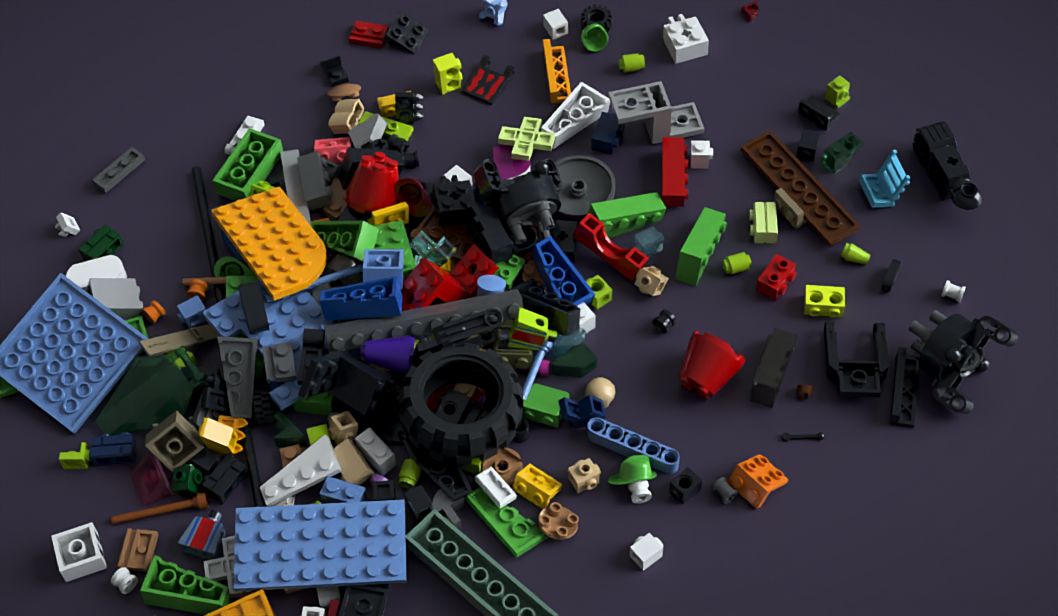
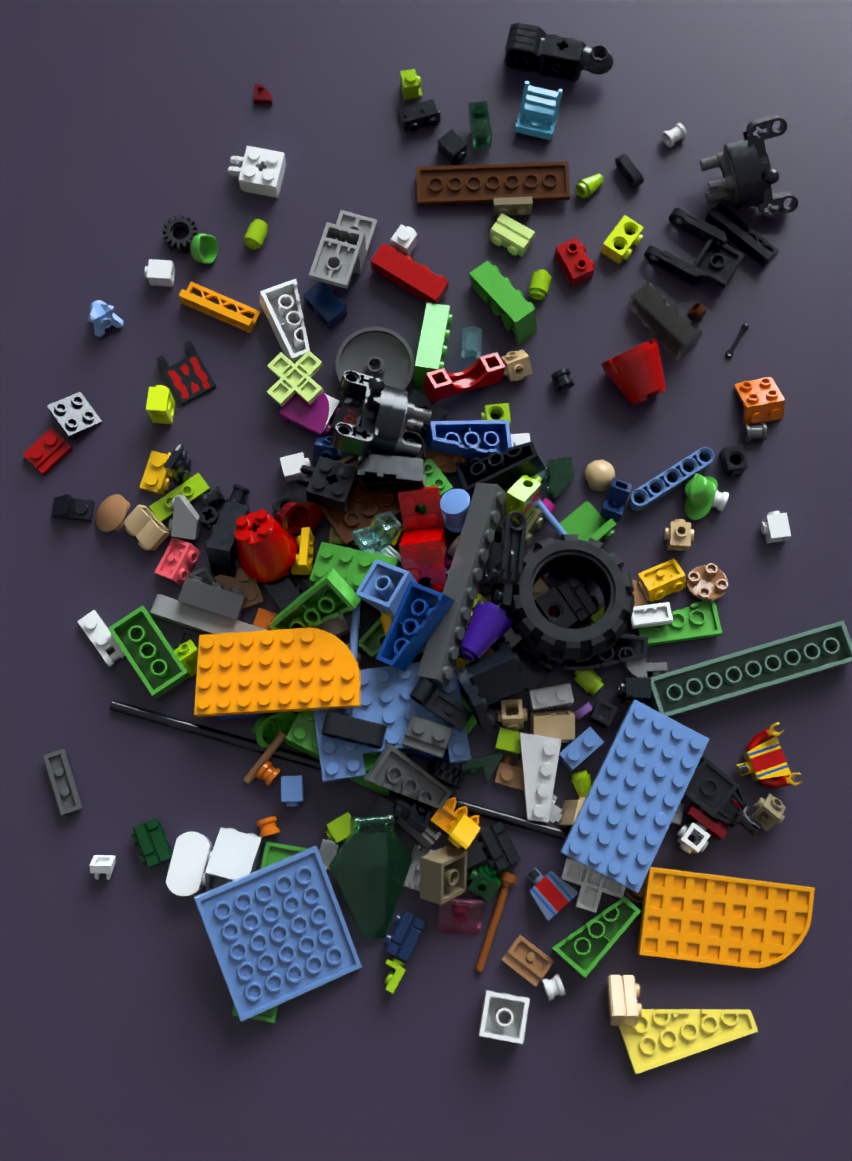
camera: 65 degrees left, 20 degrees up
(173, 341) = (326, 818): dark tan piece -> none

